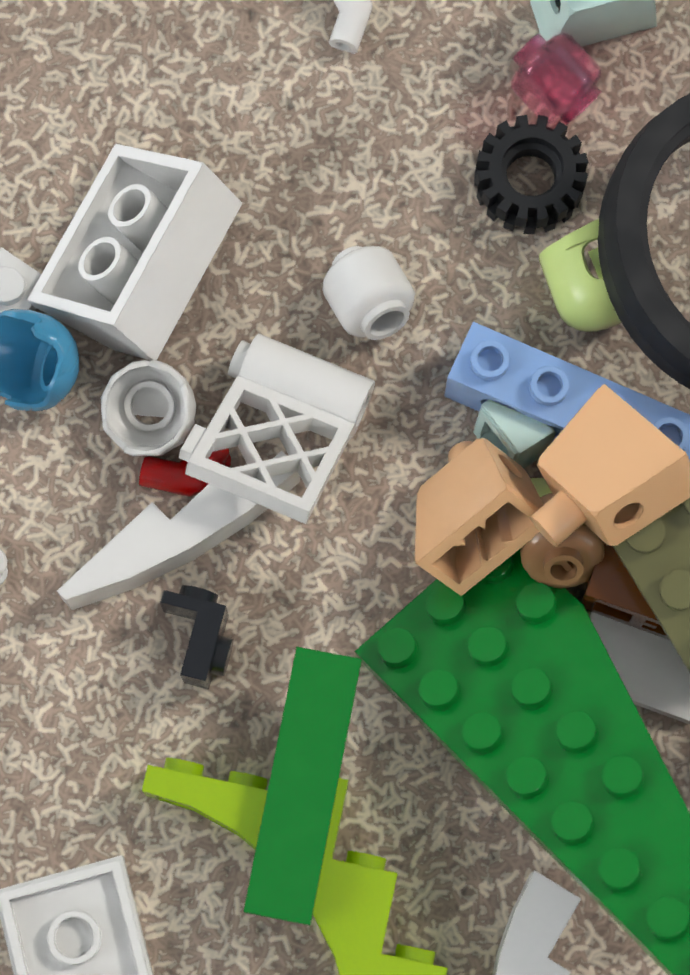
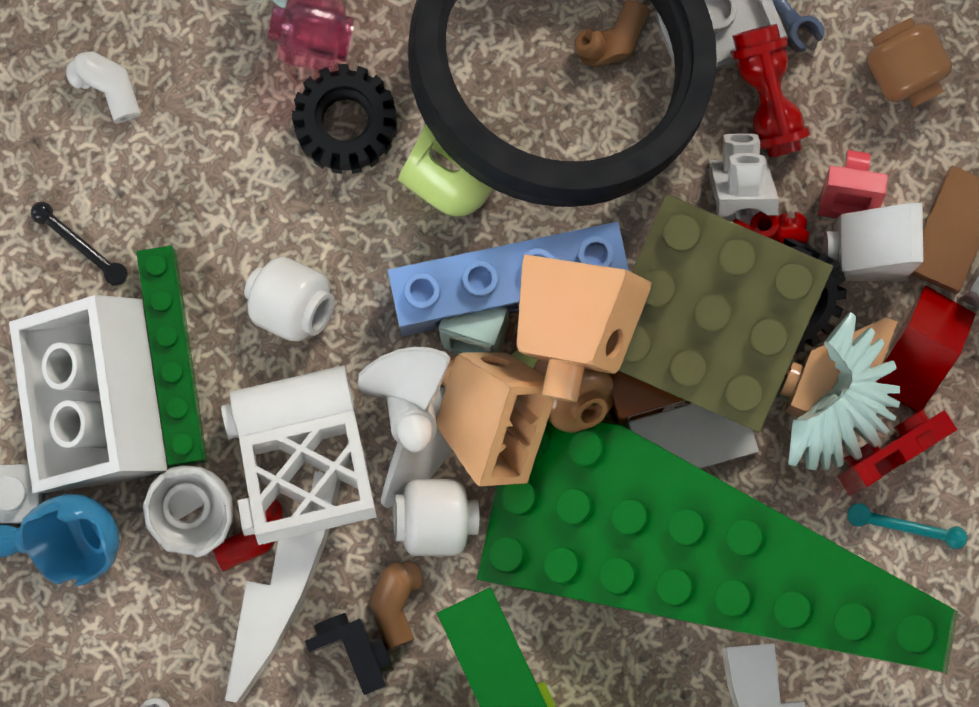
camera: 35 degrees left, 5 degrees up
(231, 270) = (171, 356): none -> green piece
(235, 167) = (114, 272): none -> black hinge
(266, 612) = (389, 599): none -> medium nougat arm
(357, 569) = (434, 517): none -> white head
(419, 430) = (414, 395): none -> white piece

